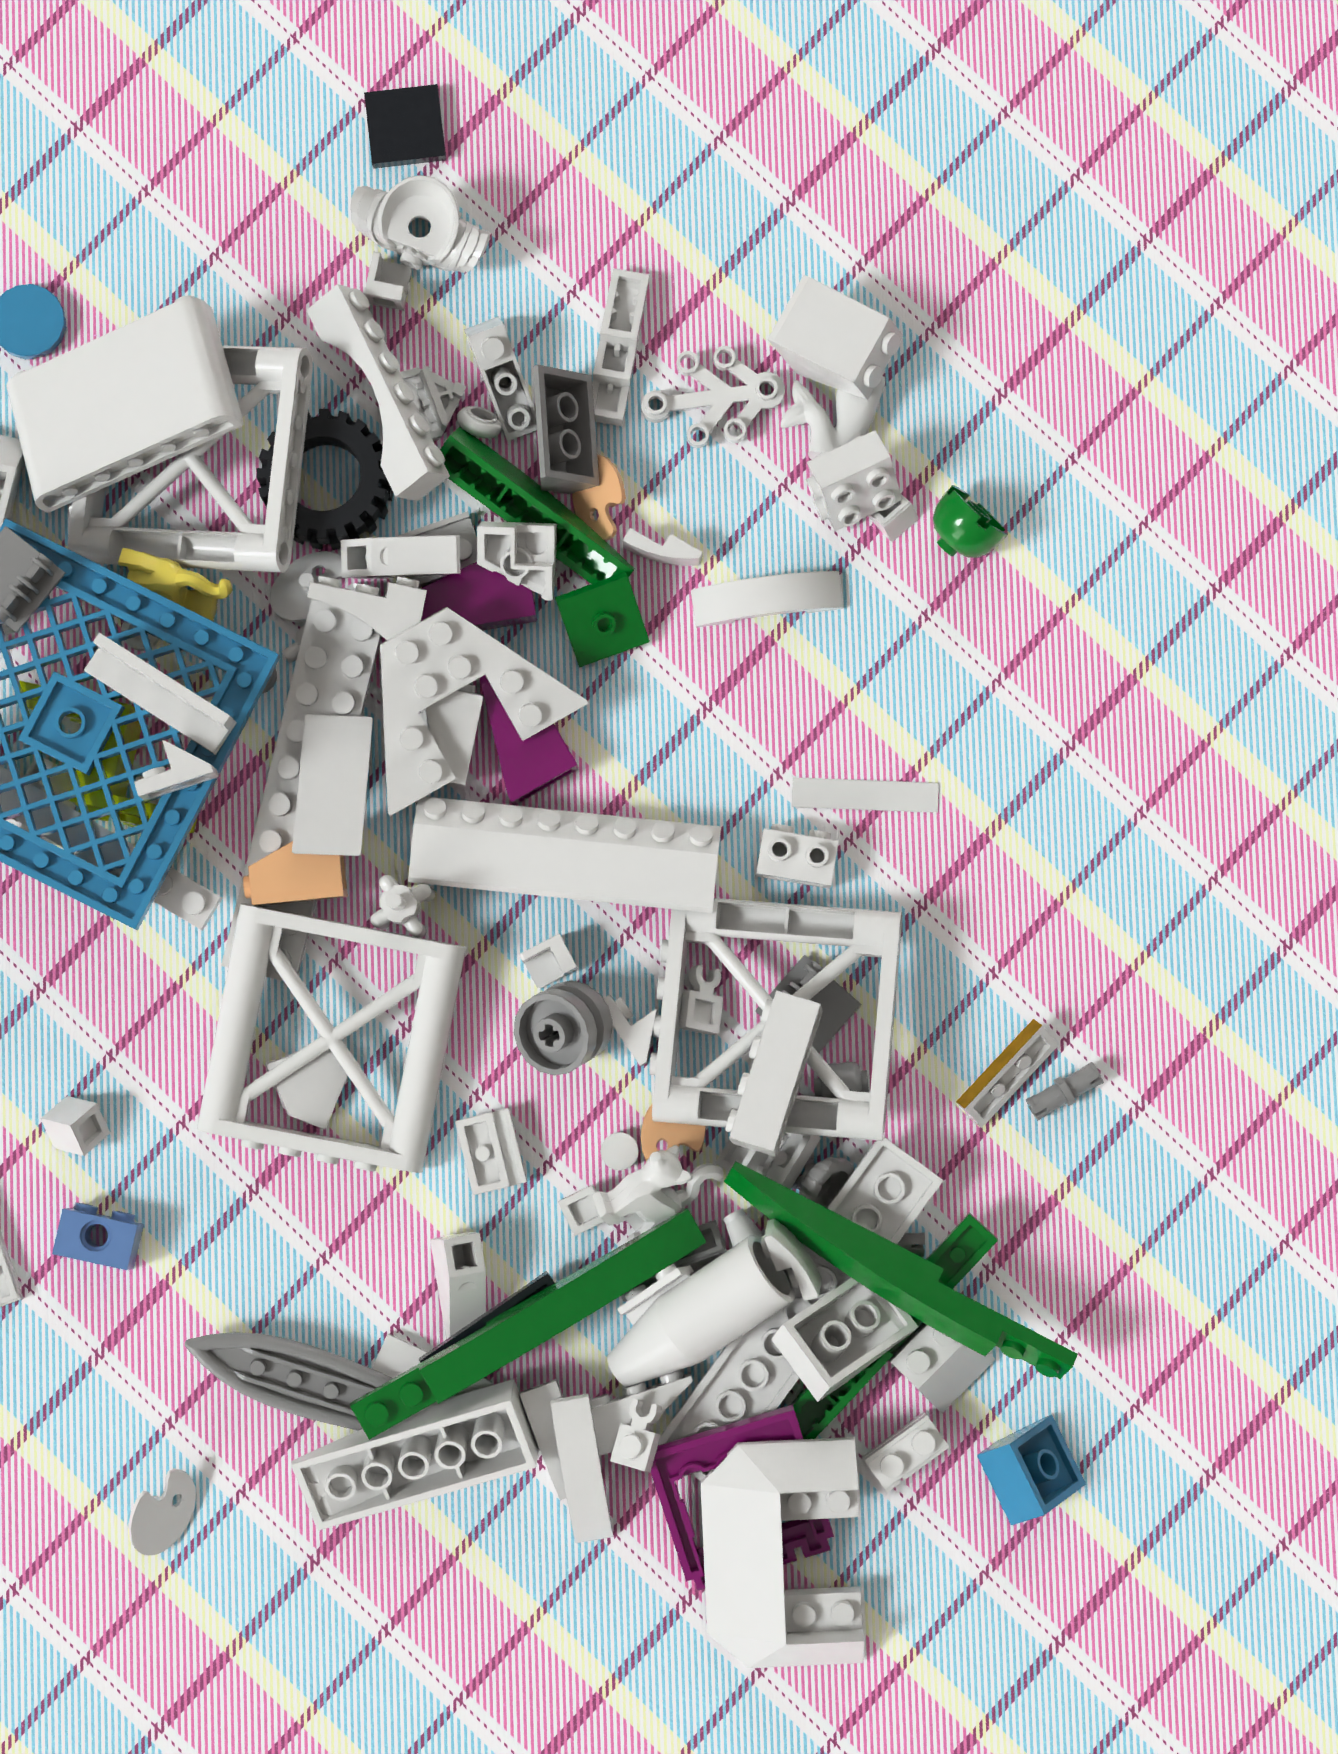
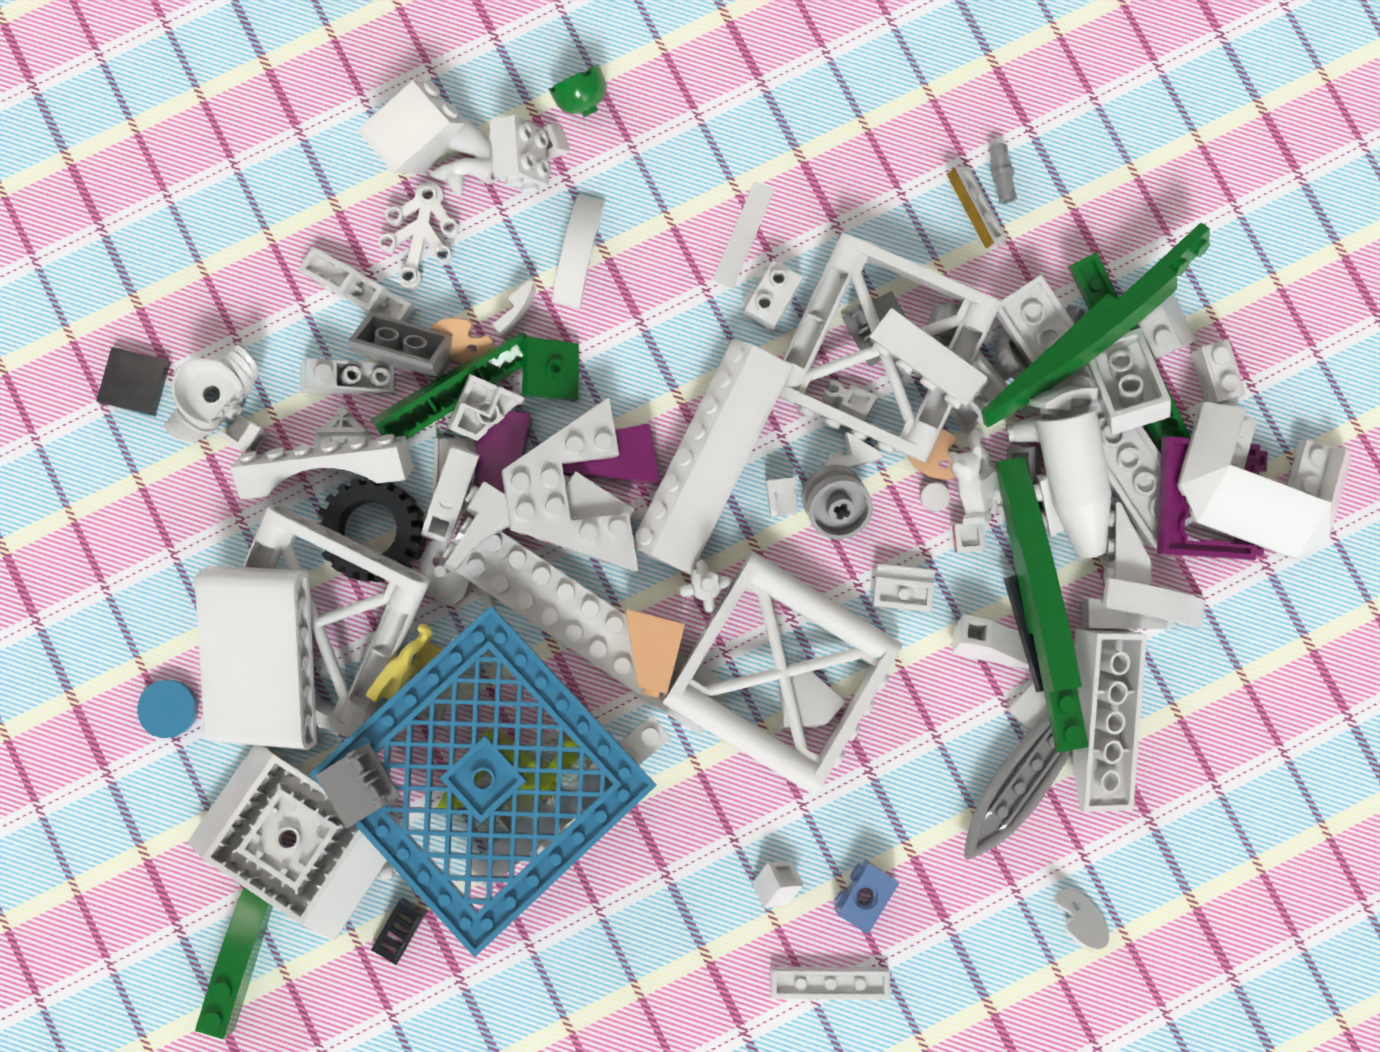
camera: 70 degrees left, 0 degrees up
(159, 694) = (487, 704): white fence -> none
(184, 772) = (553, 704): white slope -> none
(332, 785) = (600, 603): white sticker -> none
(479, 422) = (372, 405): white piece -> none
(636, 1443) = (1152, 557): white plate -> none
(1031, 1470) = (1260, 293): dark azure slope -> none

